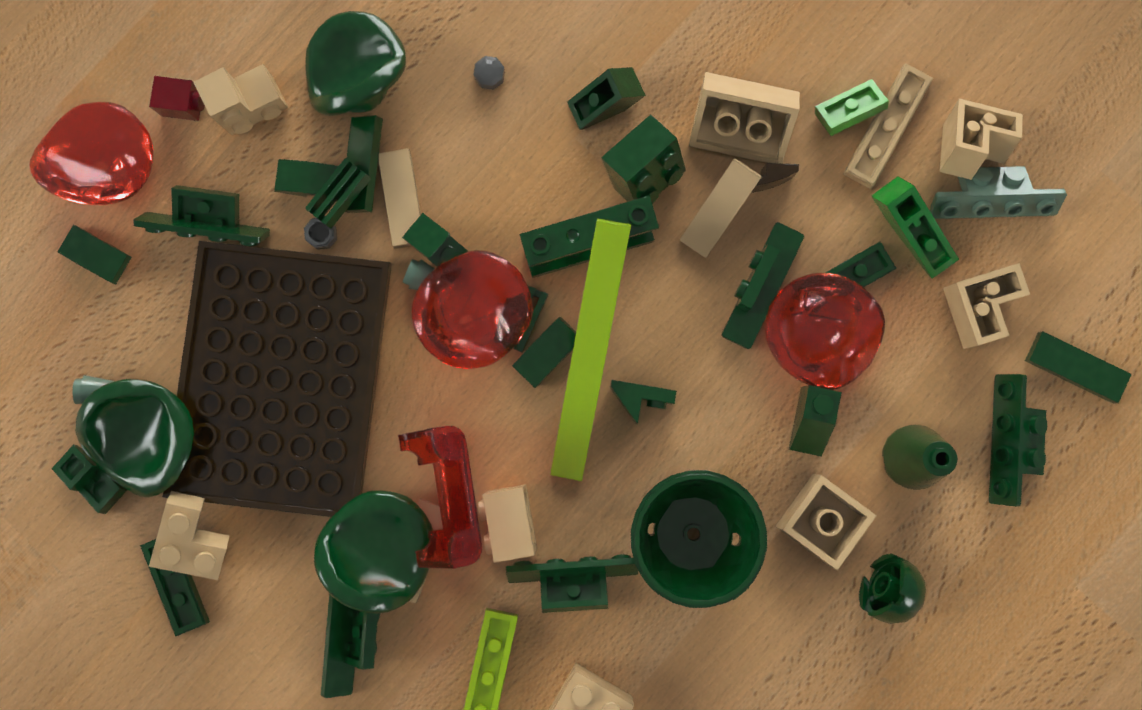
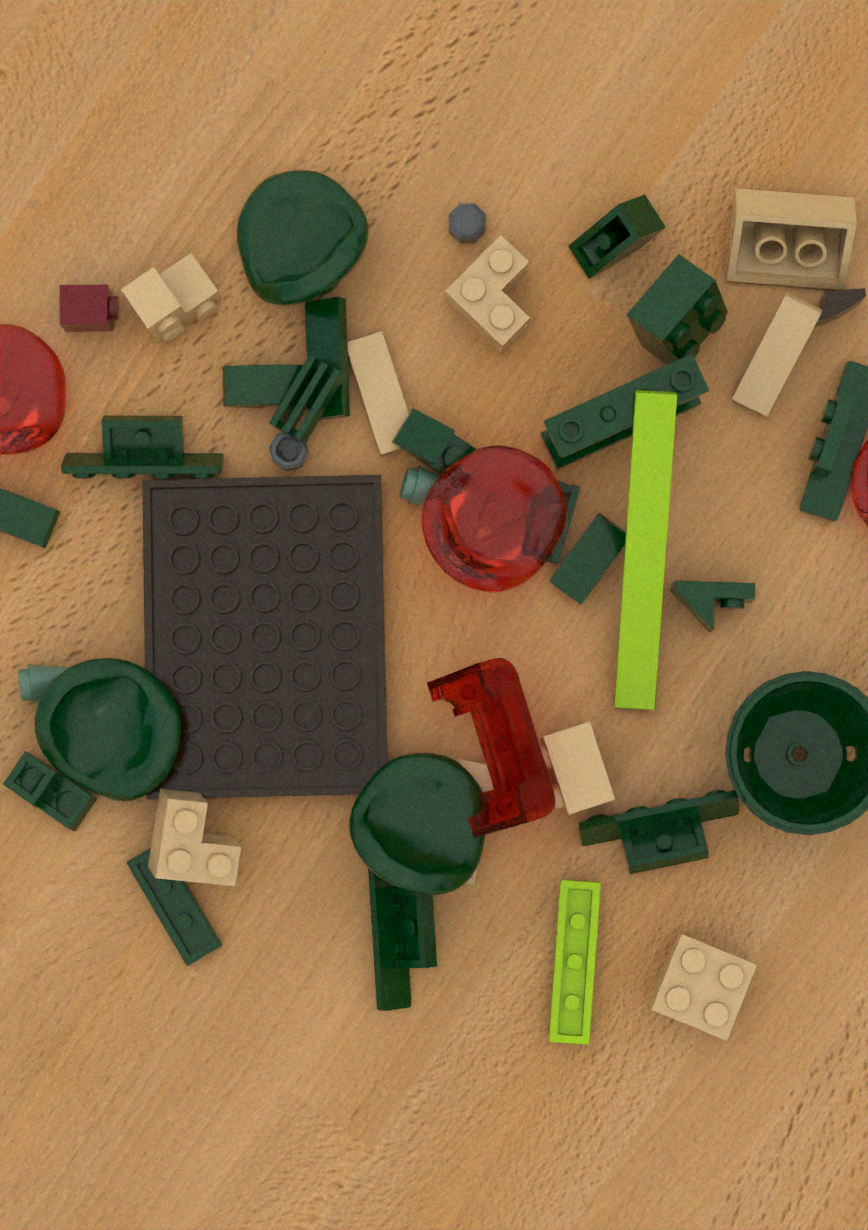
camera: 10 degrees left, 0 degrees up
(492, 128) = (482, 297): none -> tan brick

